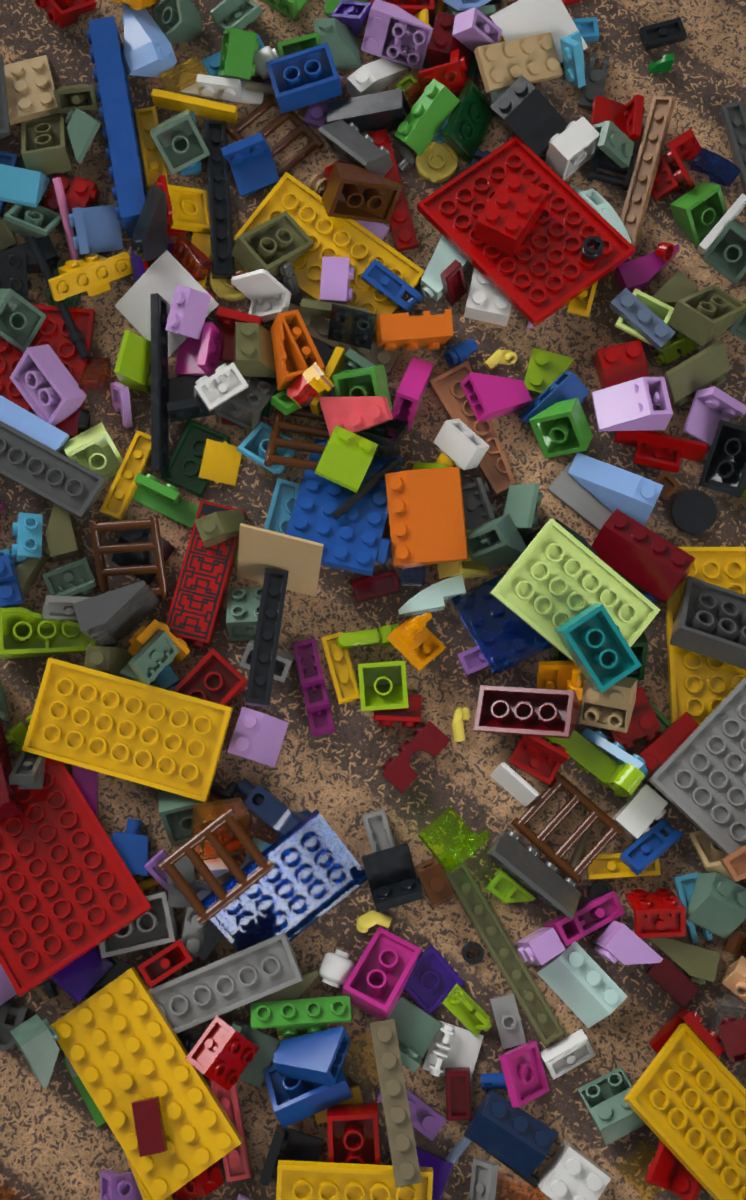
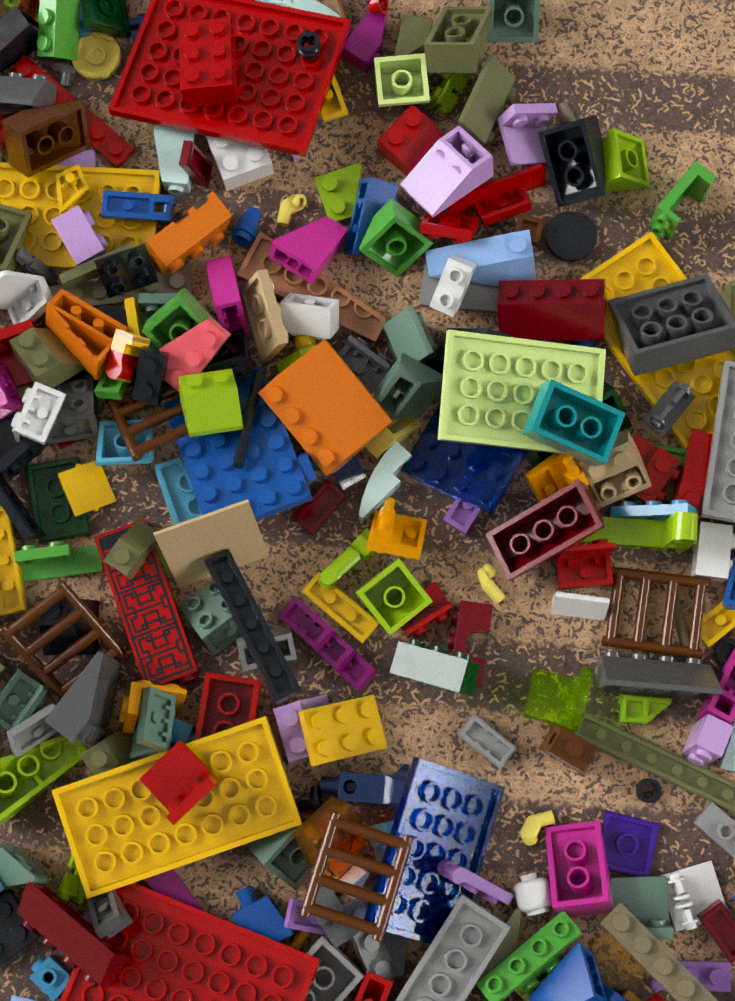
camera: 30 degrees left, 0 degrees up
(139, 711) = (179, 781): none -> red bracket
(281, 755) = (342, 730): none -> yellow plate
(299, 929) = (473, 882): none -> medium lavender plate
(317, 411) = (150, 375): none -> black plate
(353, 242) = (70, 187): none -> yellow piece
(378, 756) = (435, 667): none -> brick
(392, 877) = (526, 772): black bracket -> none
(428, 423) = (264, 316): none -> tan plate
(467, 1011) = (681, 848): lime hinge -> none
(580, 489) = (453, 285): none -> white brick
(611, 448) = (451, 225): none -> red plate
(642, 319) = (401, 83): sand blue plate -> none
(679, 685) = (669, 408): none -> dark grey hinge

